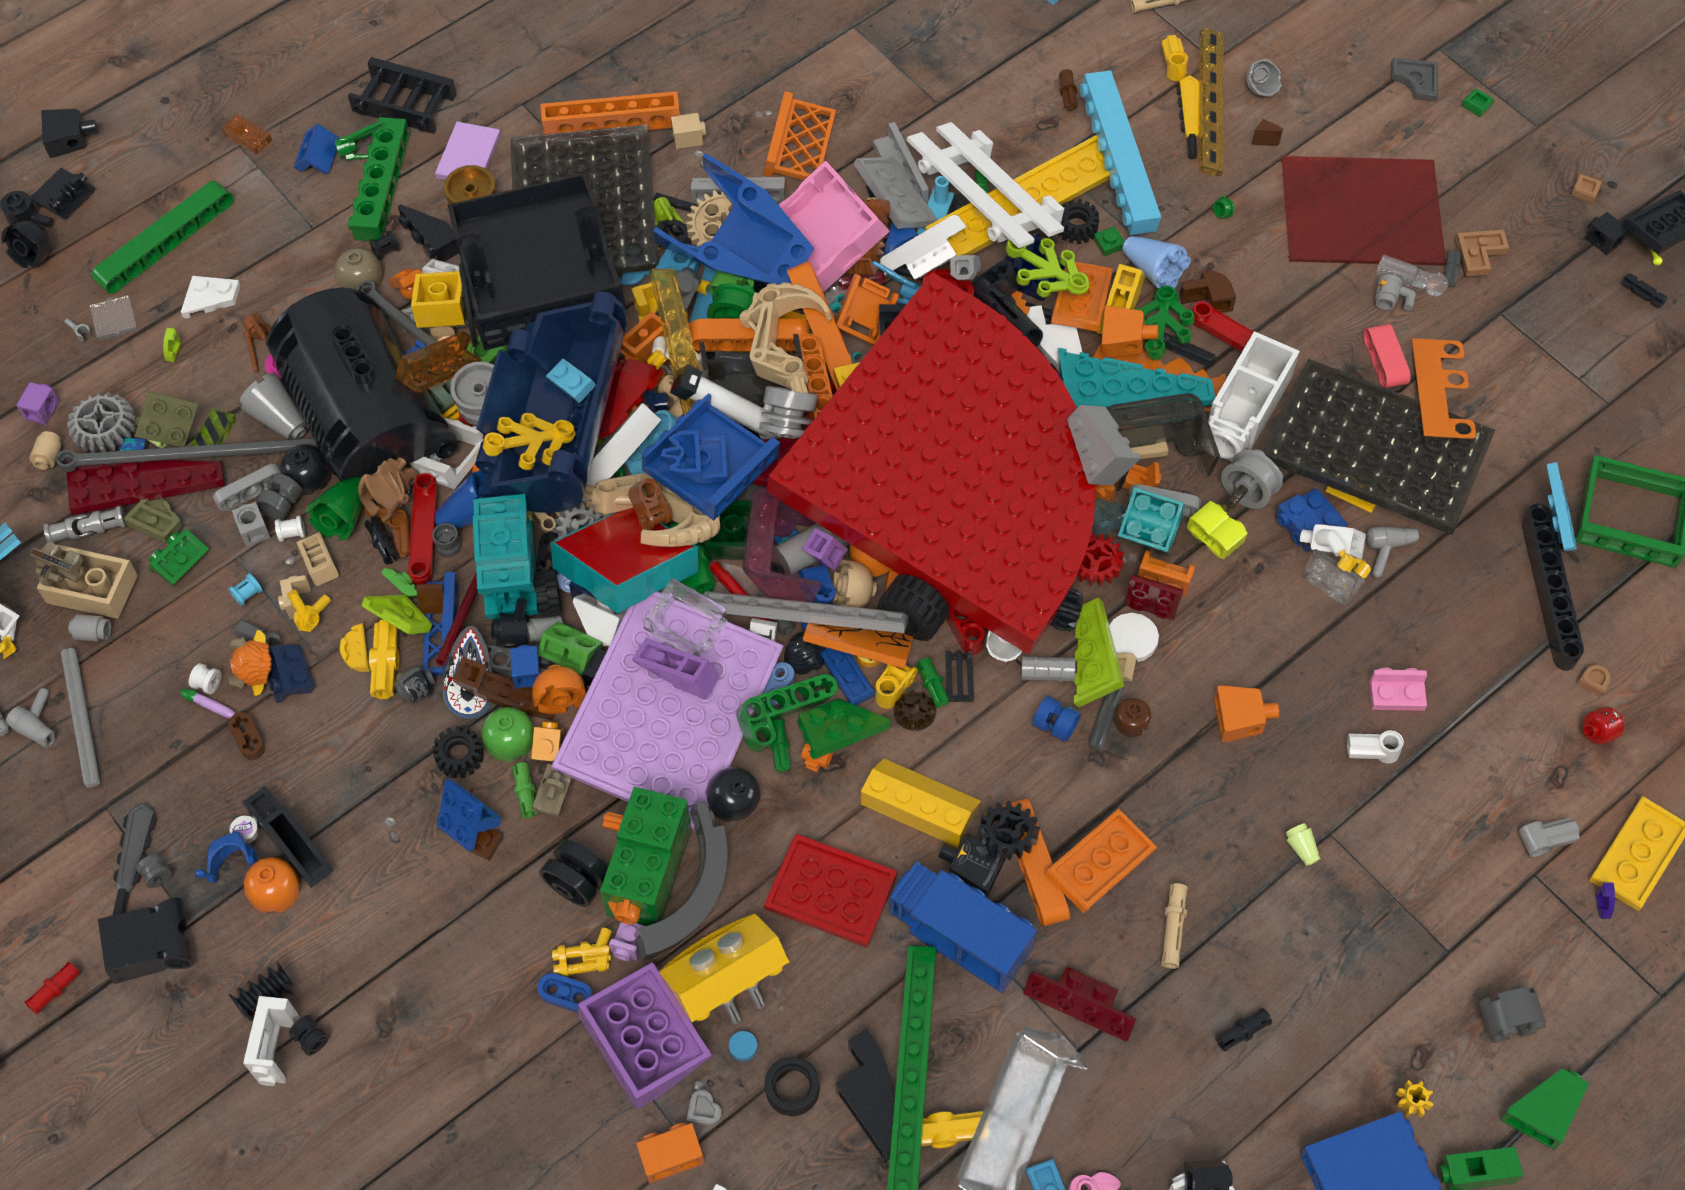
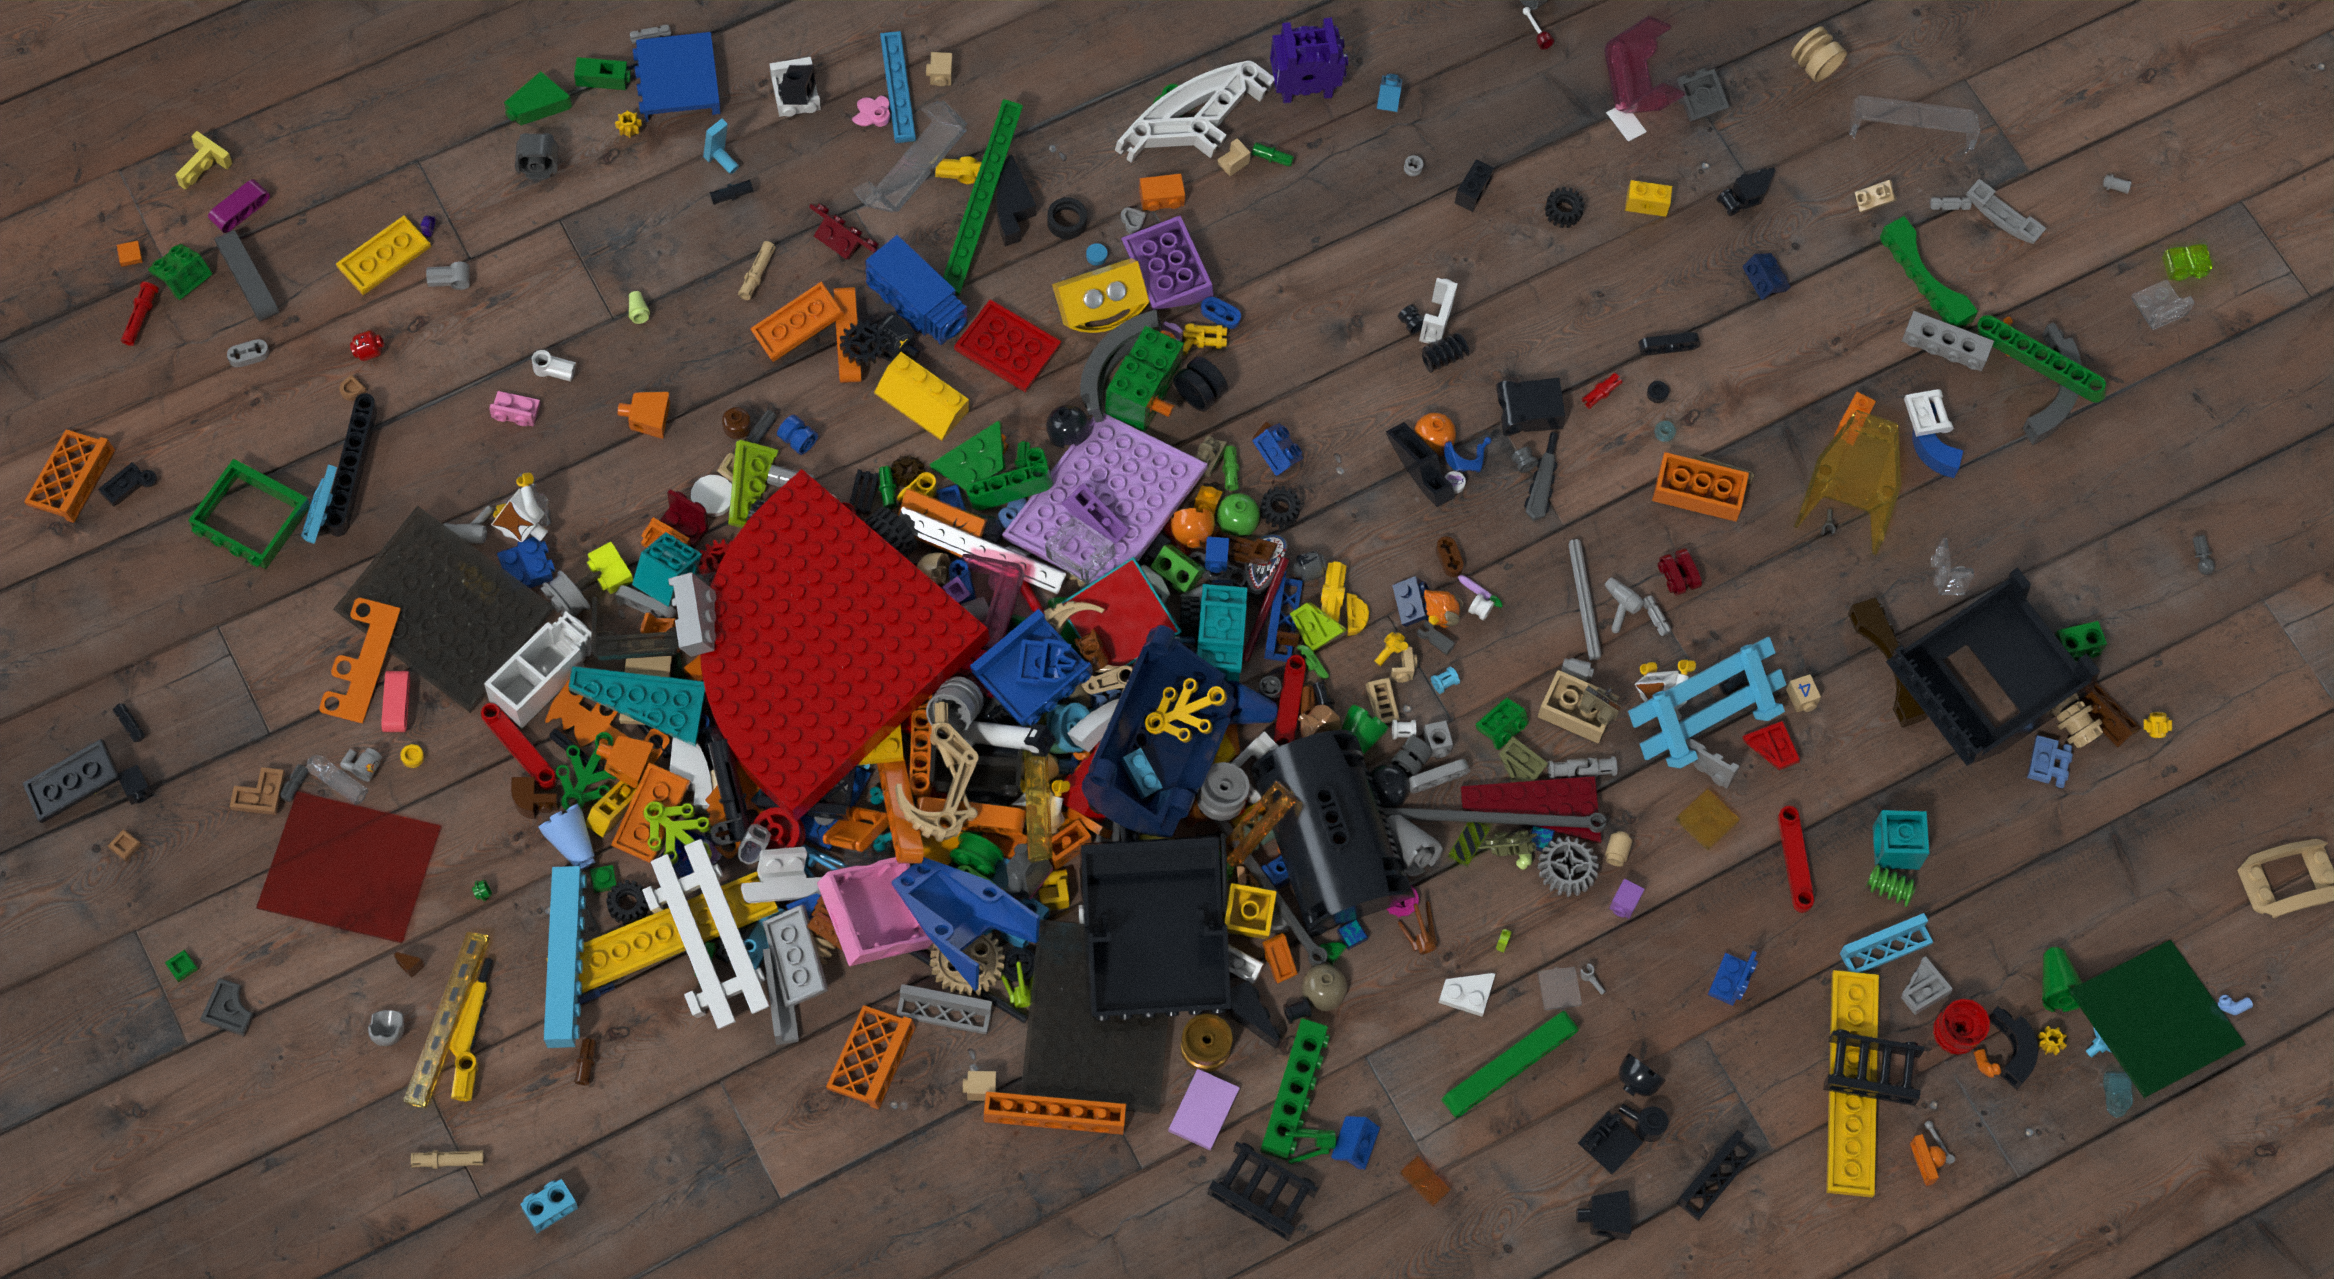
camera: 175 degrees left, 5 degrees up
(1285, 1077) = (715, 146): none -> medium azure piece
(1346, 315) = (412, 756): none -> yellow tile

